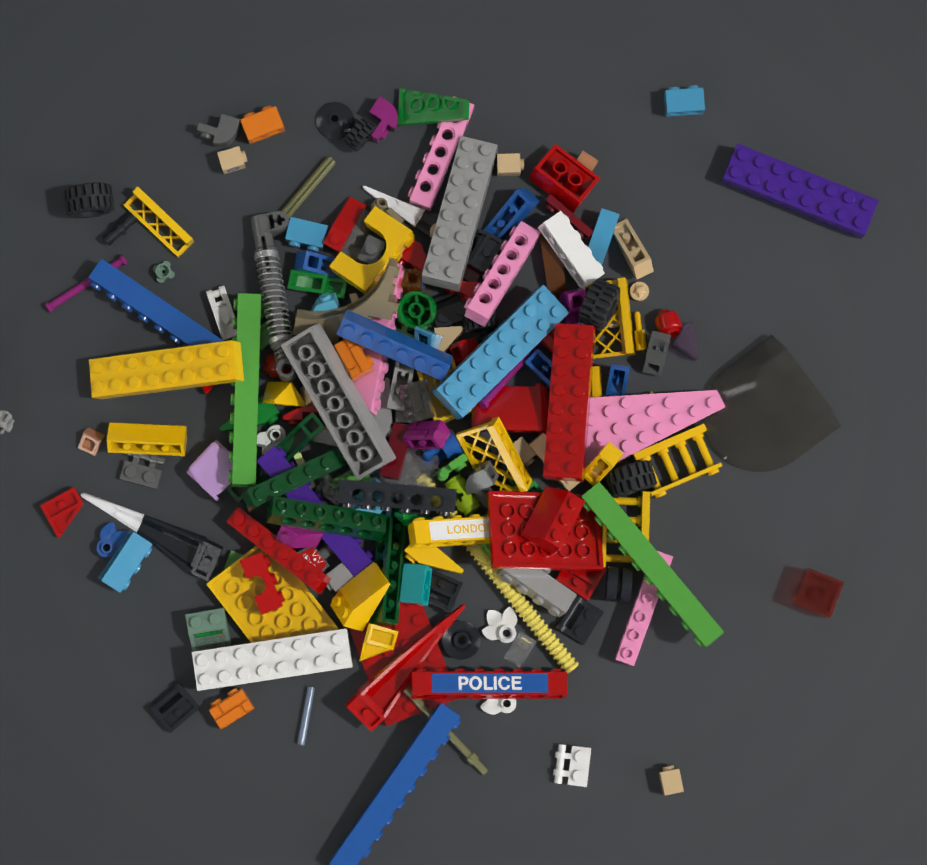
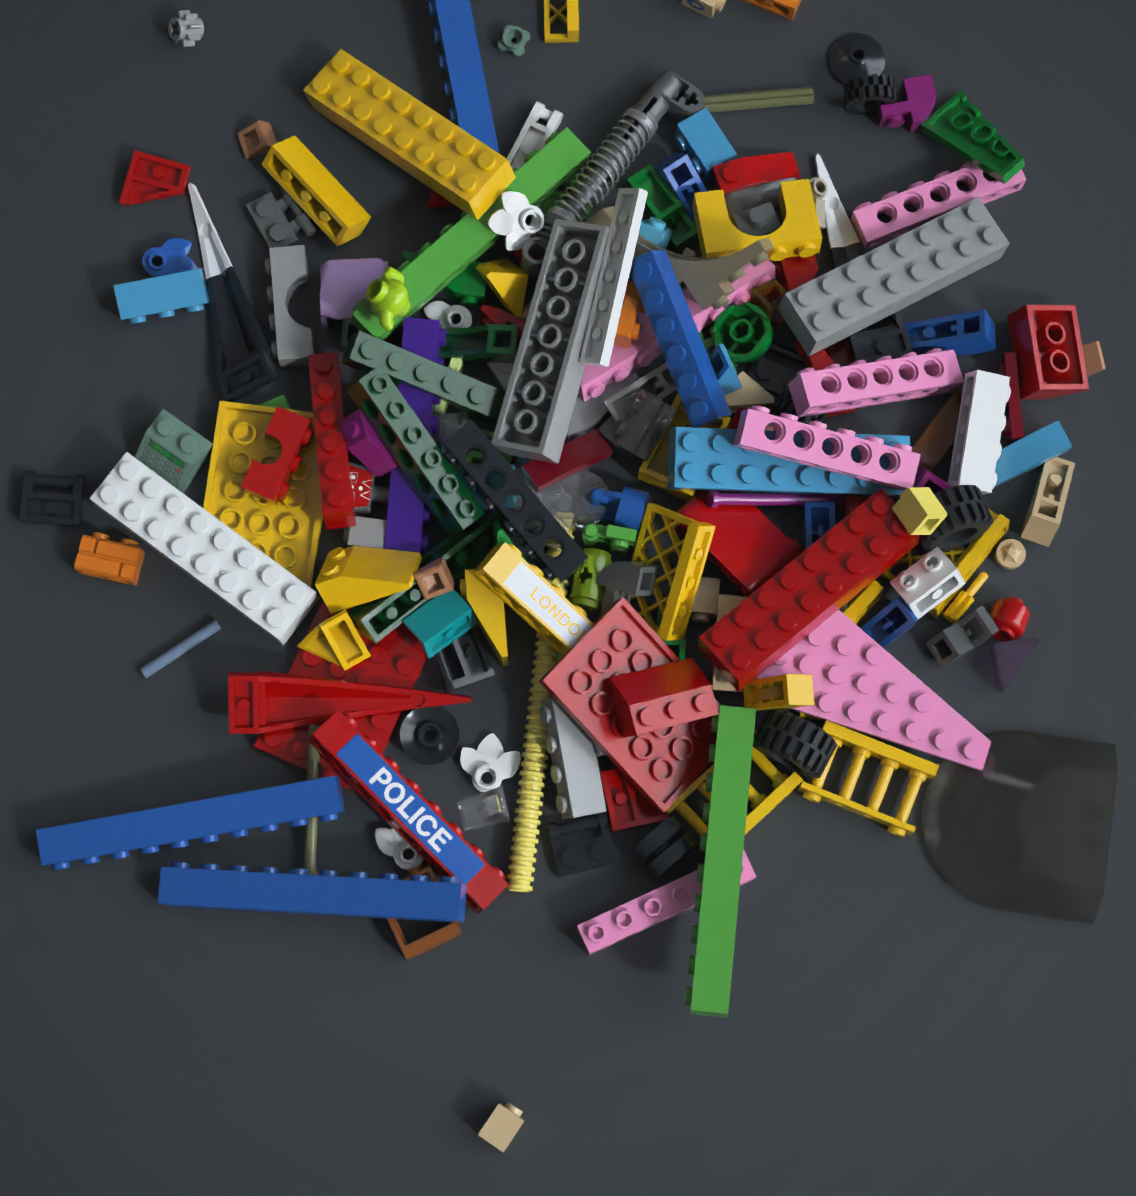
camera: 50 degrees right, 5 degrees down
(173, 490) = (288, 272): none -> light grey arch
(243, 460) = (388, 297): none -> lime piece
(259, 364) = (511, 220): none -> white plate
(337, 347) = (613, 277): none -> white plate
(394, 568) = (434, 579): none -> nougat slope
(426, 435) = (616, 472): magenta brick -> none
(484, 765) = (312, 893): none -> blue brick
(509, 164) = (1001, 281): tan brick -> none
(557, 309) = (751, 437): none -> bright pink brick
(561, 717) = (432, 940): none -> dark orange window
(578, 765) = (415, 1006): white plate -> none
(584, 318) = (919, 510): none -> light yellow brick
(617, 344) = (927, 582): none -> white brick
(817, 593) = (881, 1084): clear red brick -> none

